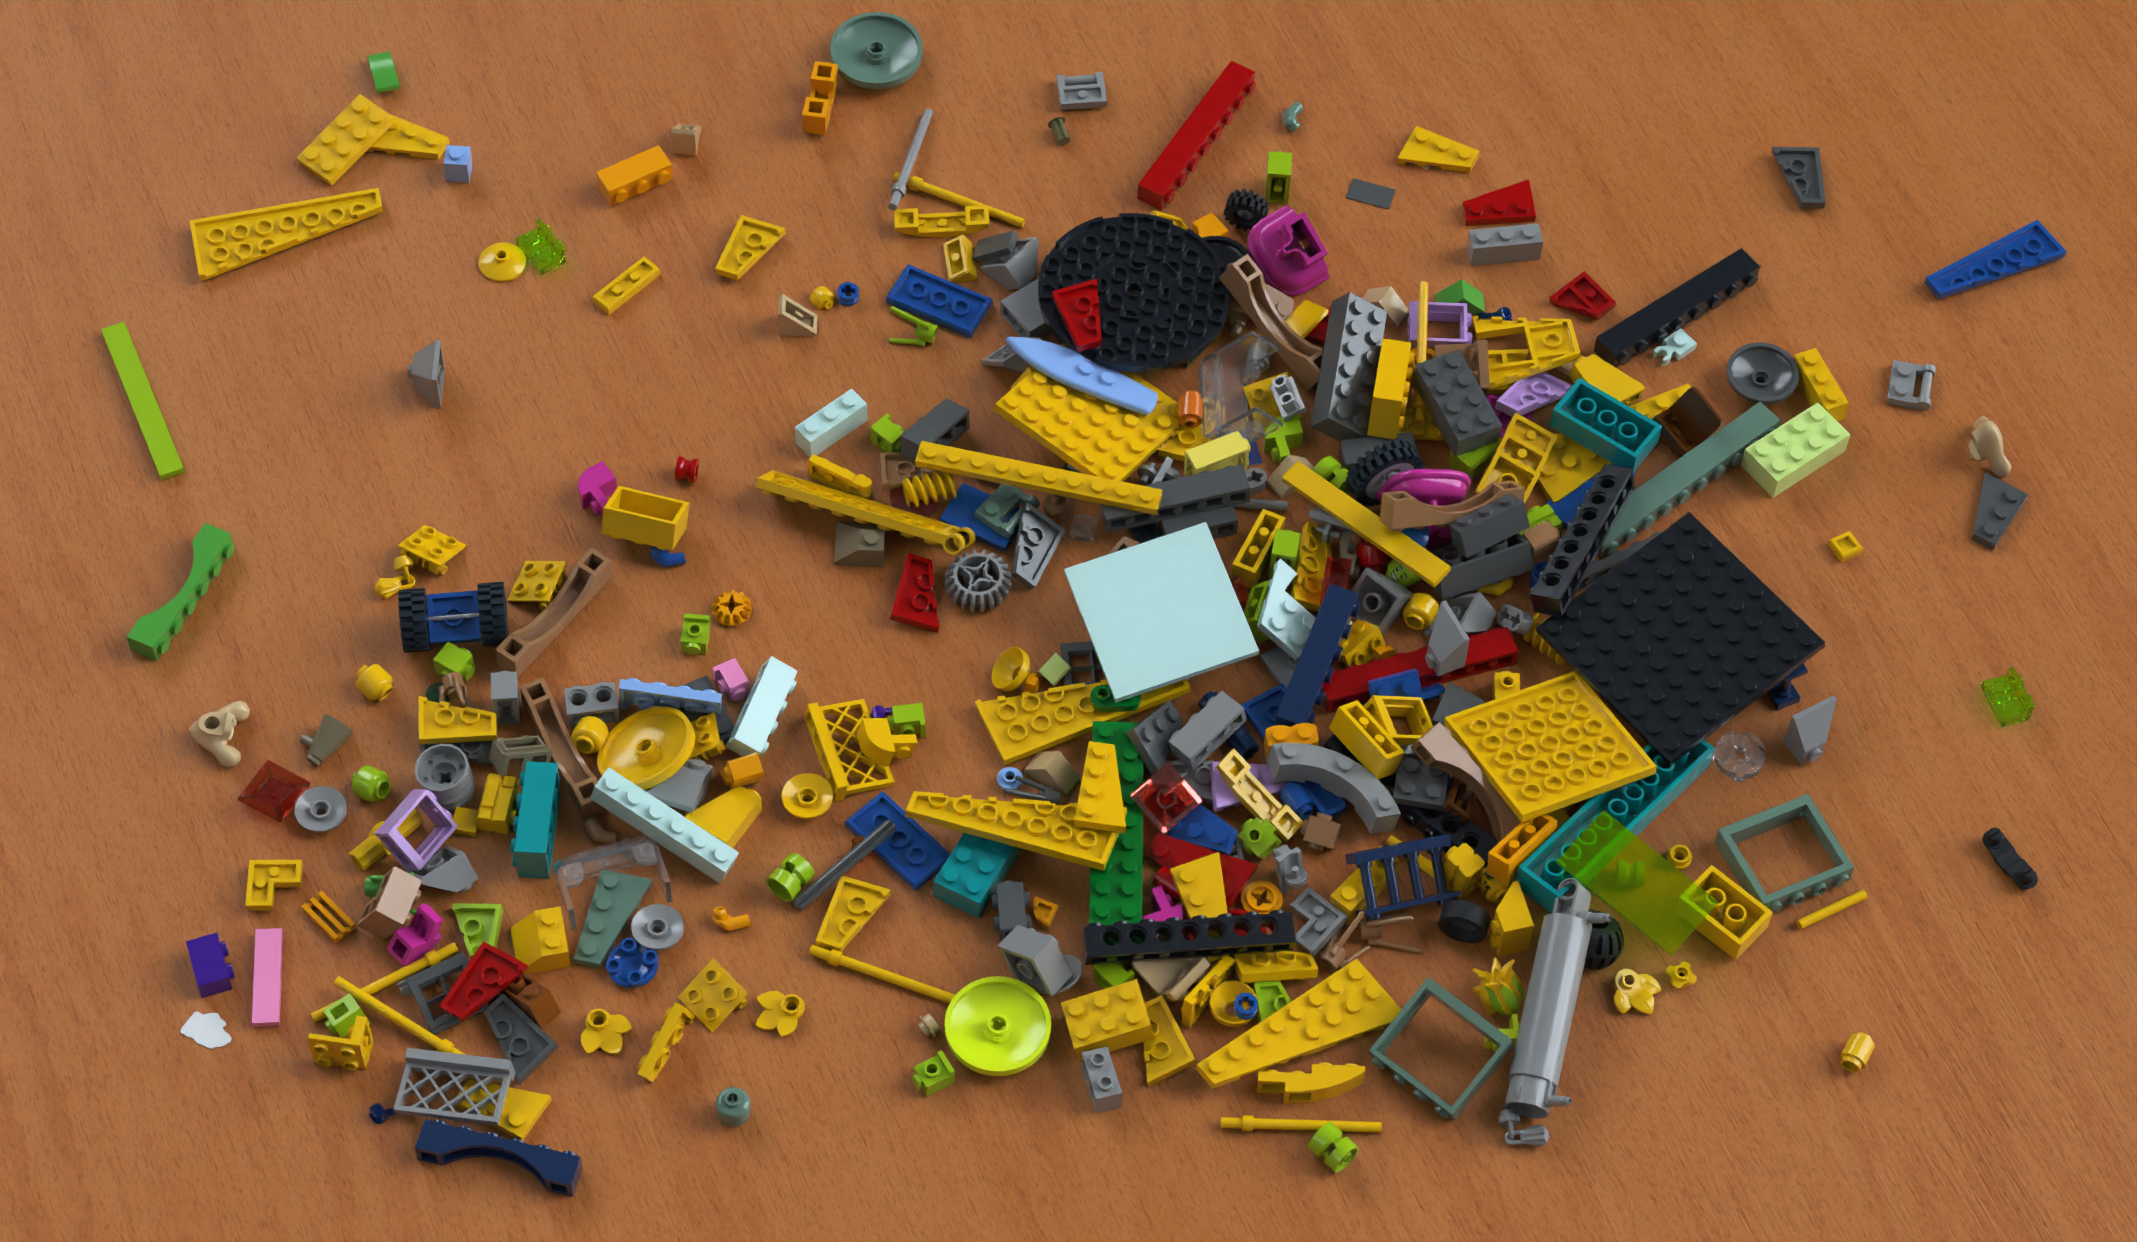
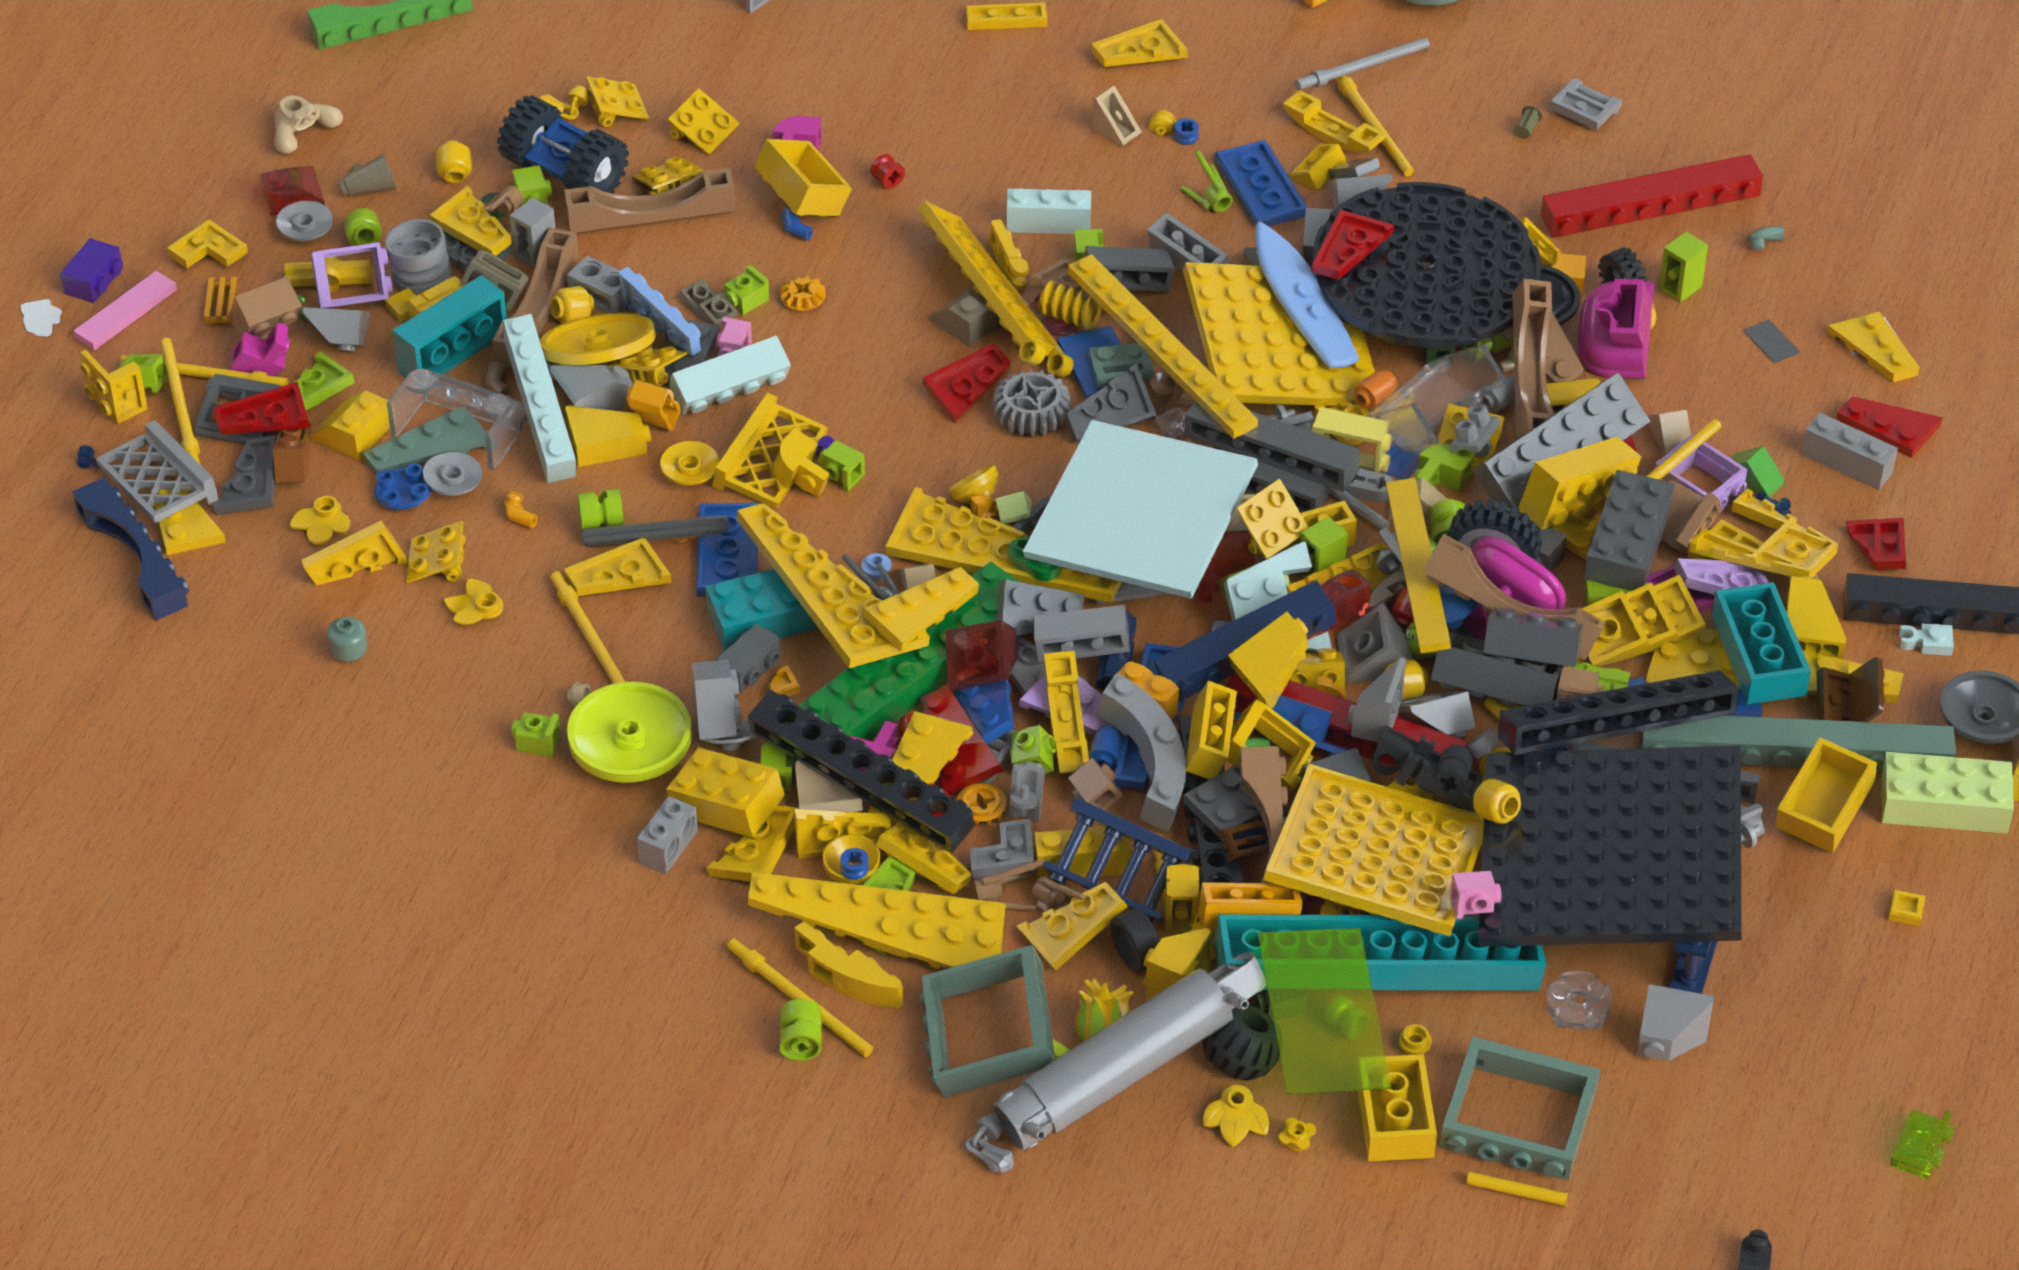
camera: 45 degrees right, 10 degrees down
(514, 522) = (702, 122): none -> yellow hinge
(679, 665) = (706, 303): none -> dark tan slope
(961, 388) = (1183, 243): none -> light grey brick
(1251, 559) = (1271, 520): none -> yellow hinge
(1358, 661) = (1271, 657): none -> yellow slope
(1414, 943) = (1071, 927): none -> yellow wing
(1521, 661) = (1437, 773): none -> black plate
(1592, 659) = (1496, 801): none -> yellow head
(1649, 734) = (1474, 893): none -> bright pink brick
(1741, 504) = (1826, 795): none -> yellow piece

